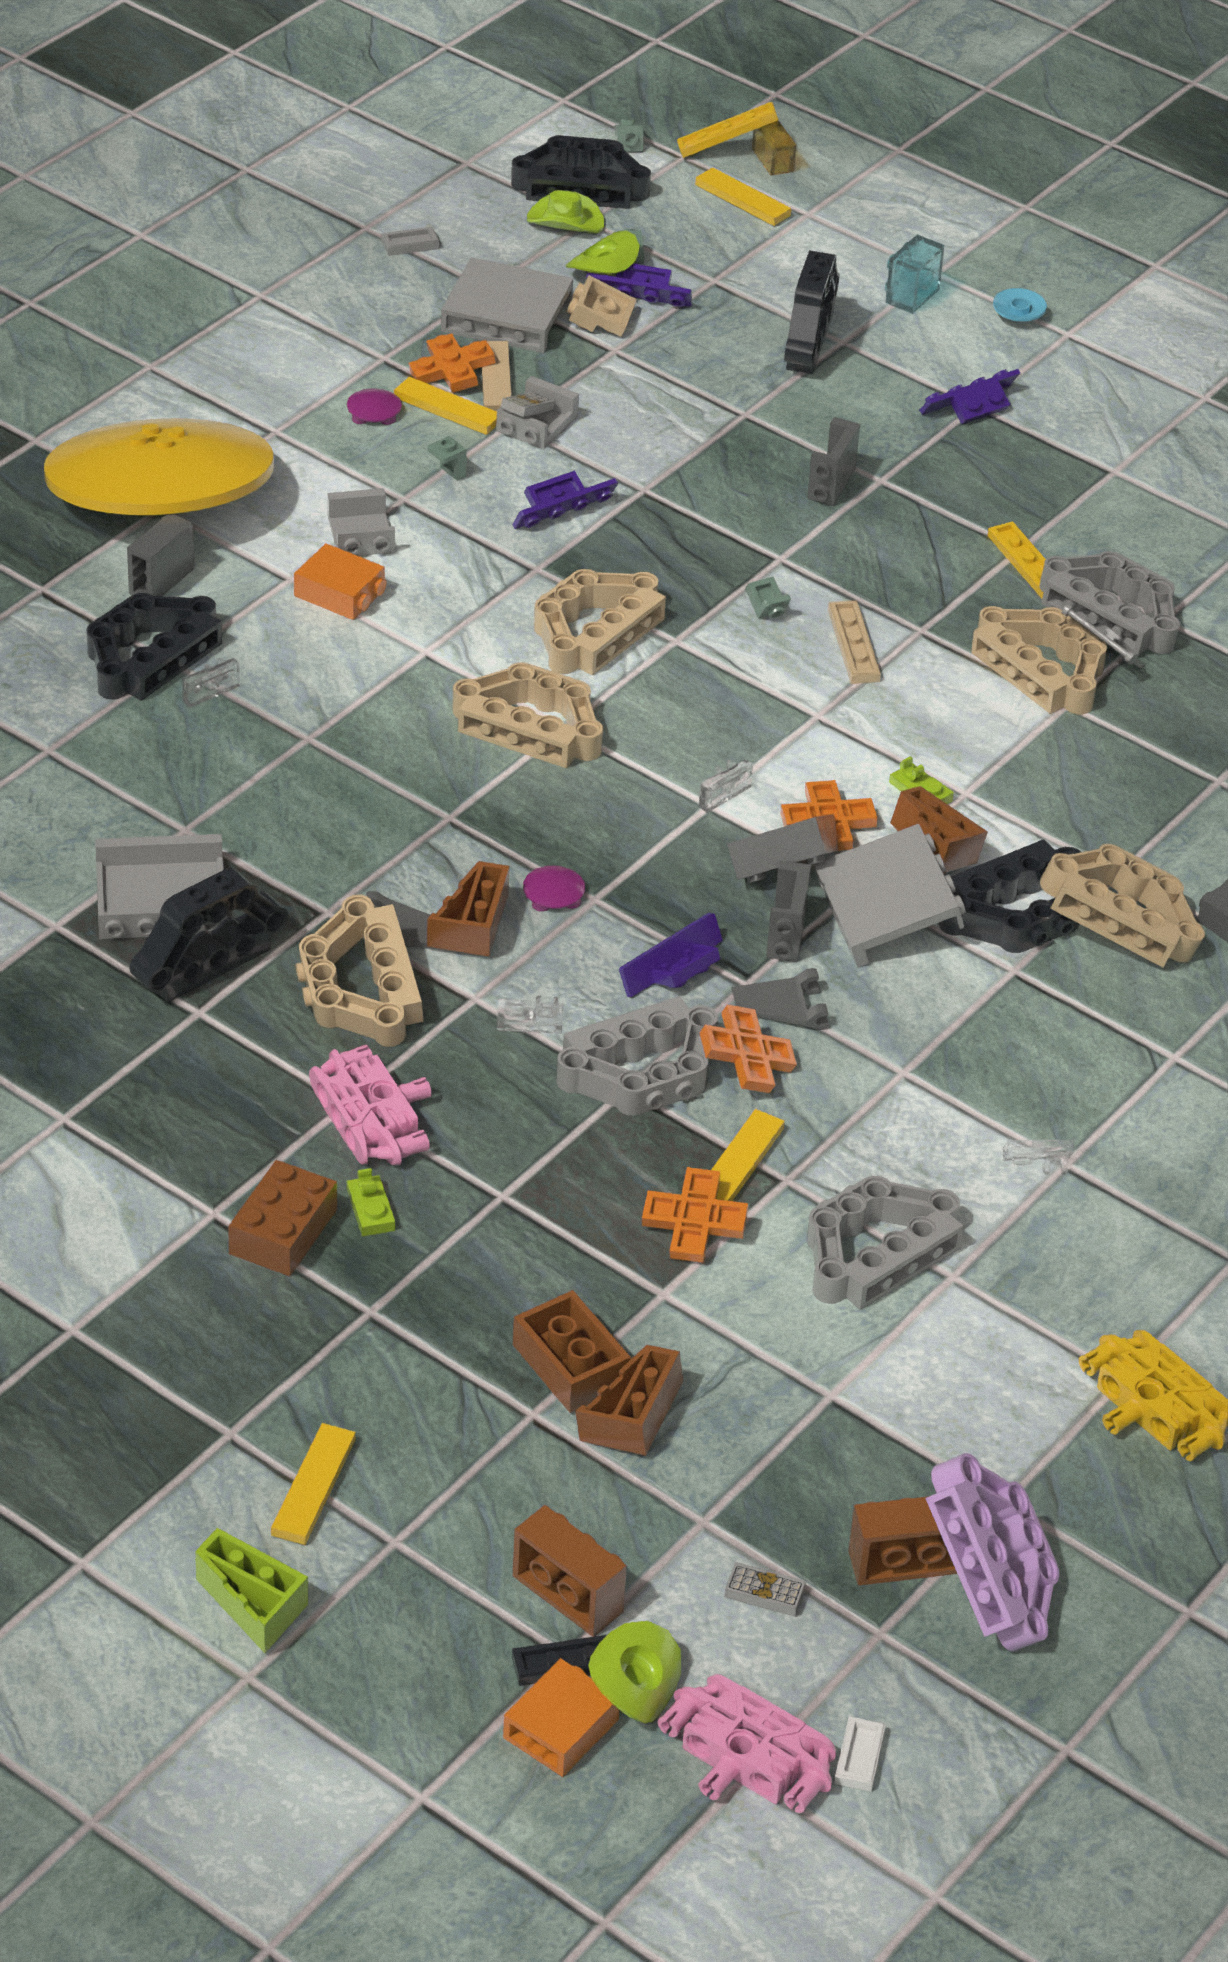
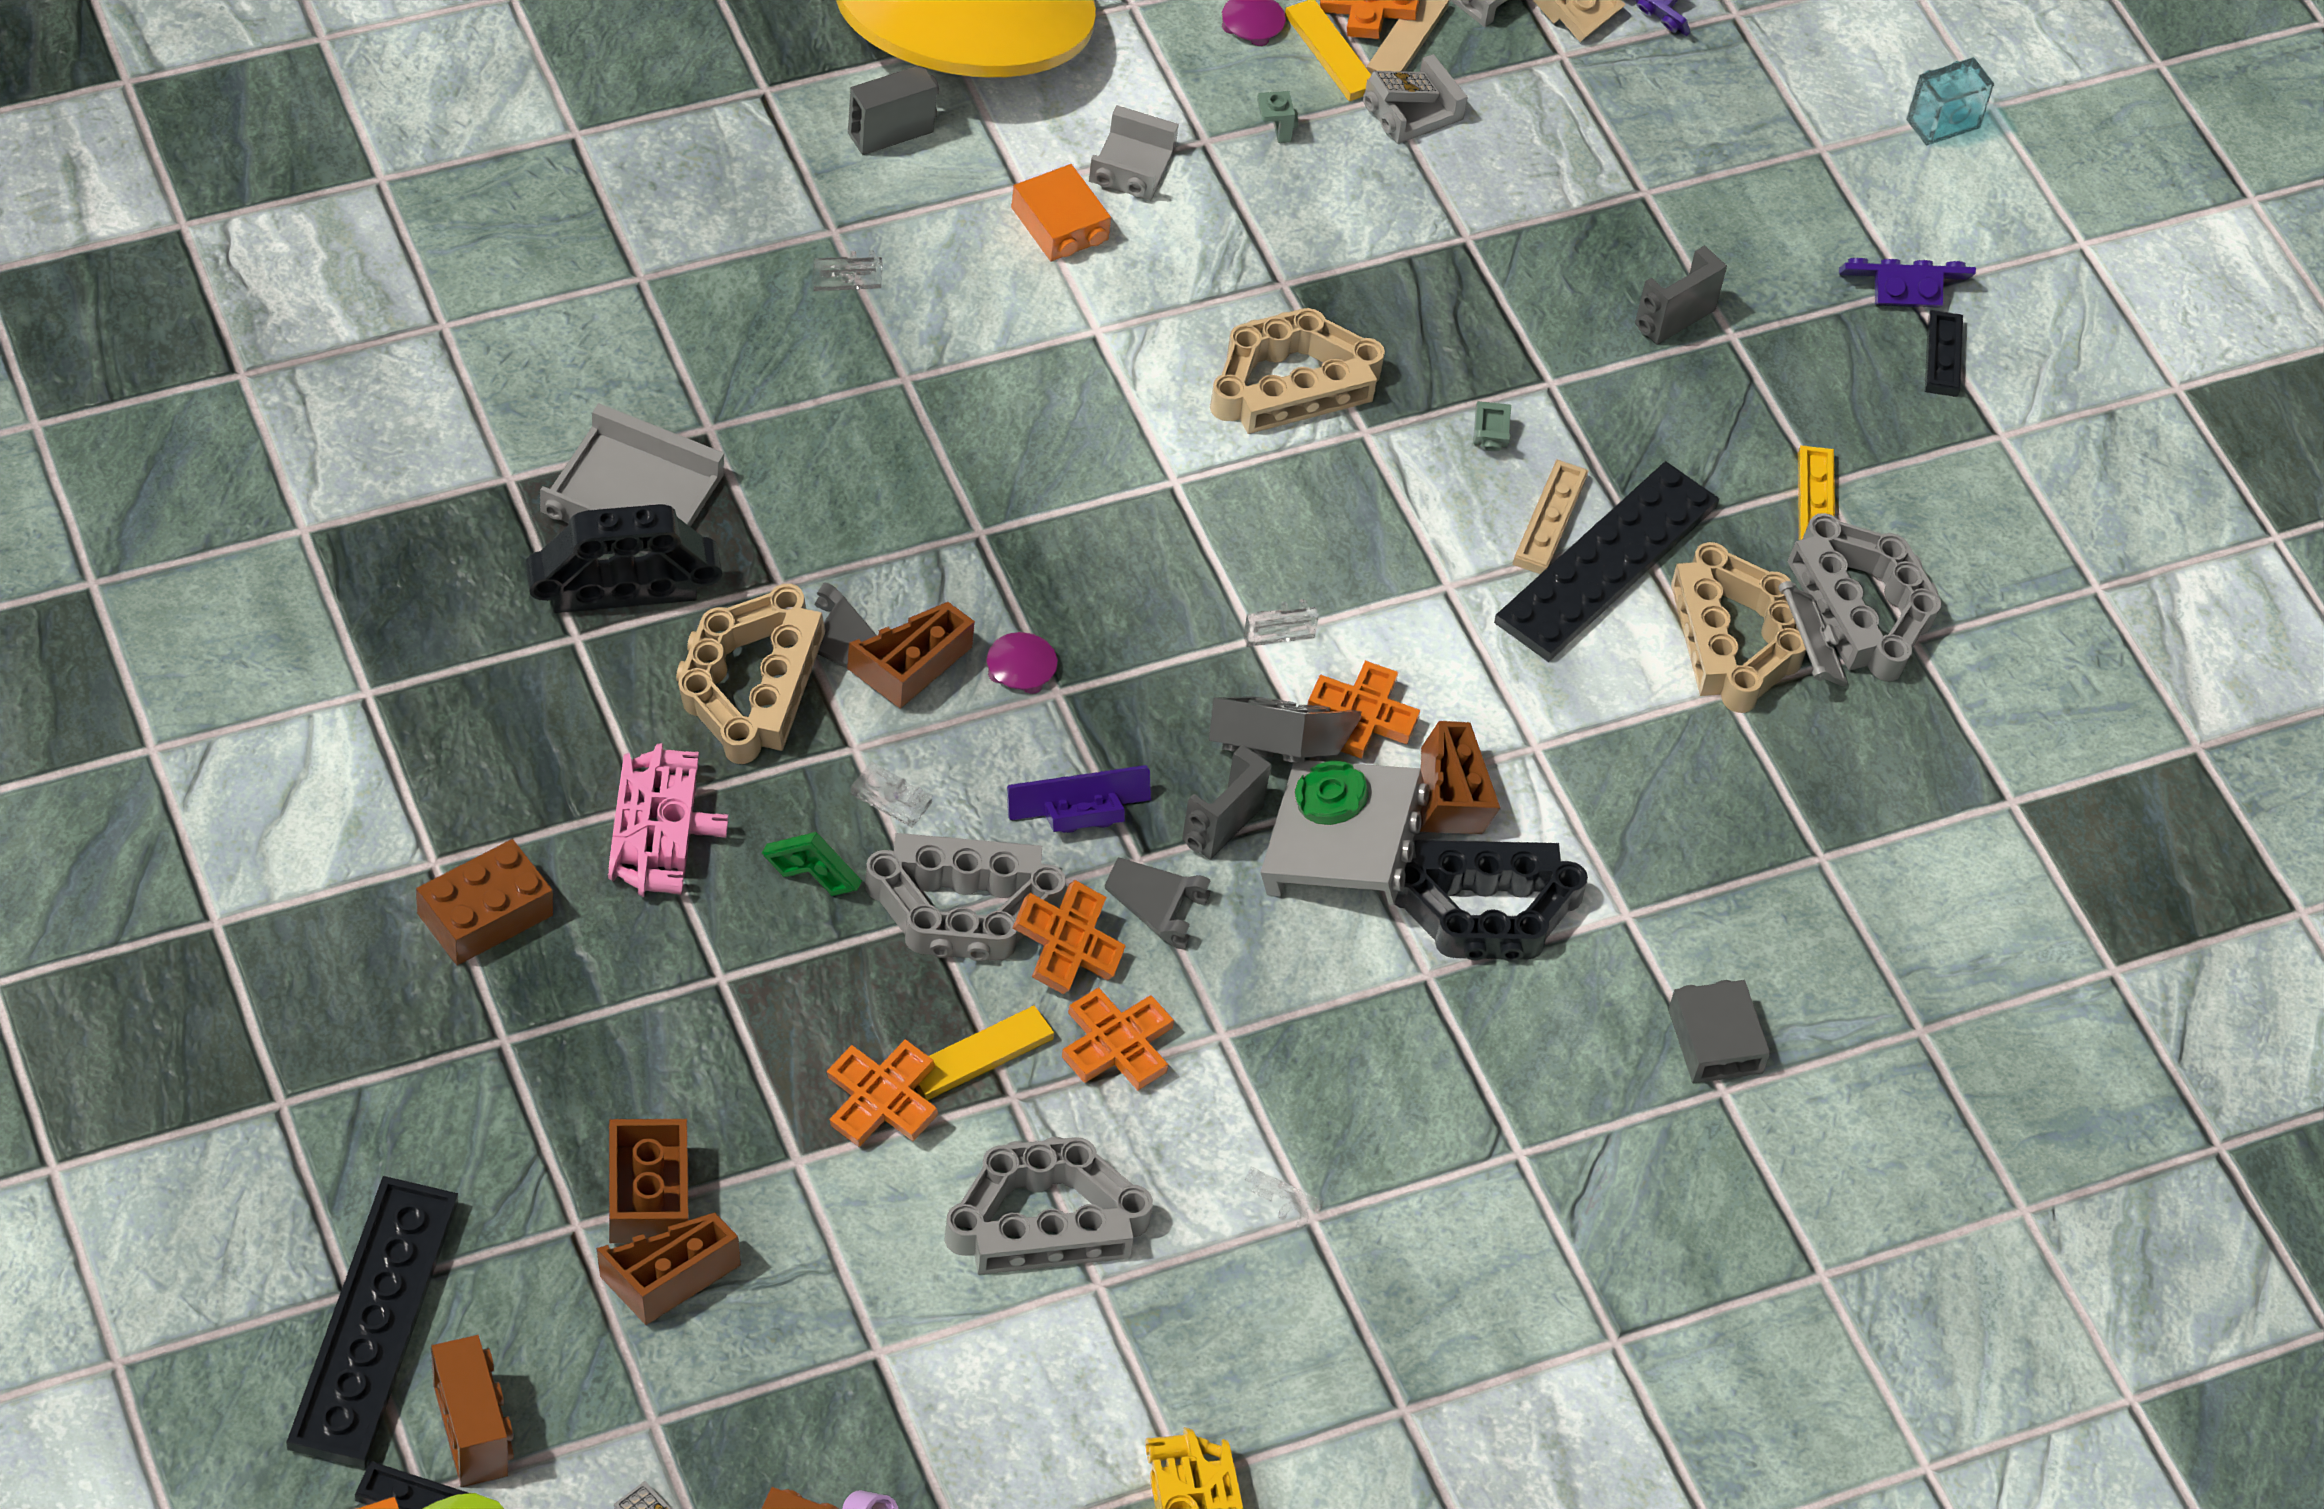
camera: 25 degrees right, 10 degrees up
(187, 636) = (868, 211): black brick -> none
(251, 1586) = (173, 1278): lime wedge -> none
(313, 1484) = (315, 1195): yellow tile -> none
(370, 1203) = (584, 926): lime plate -> none
(434, 1551) = (372, 1322): none -> black plate
(487, 713) = (1116, 464): tan brick -> none
(515, 1073) = (812, 855): none -> green tile
(558, 495) = (1362, 208): dark purple bracket -> none
(811, 311) = (1791, 102): black brick -> none
(834, 1104) = (1117, 1038): none -> orange plate
(864, 869) = (1331, 793): none -> green tile
(913, 776) = (1490, 719): lime plate -> none
(916, 654) = (1606, 561): none -> black plate
(1019, 304) = (2047, 186): medium azure dish -> none
(1034, 435) = (1943, 353): none -> black tile
(1082, 894) = (1566, 990): tan brick -> none

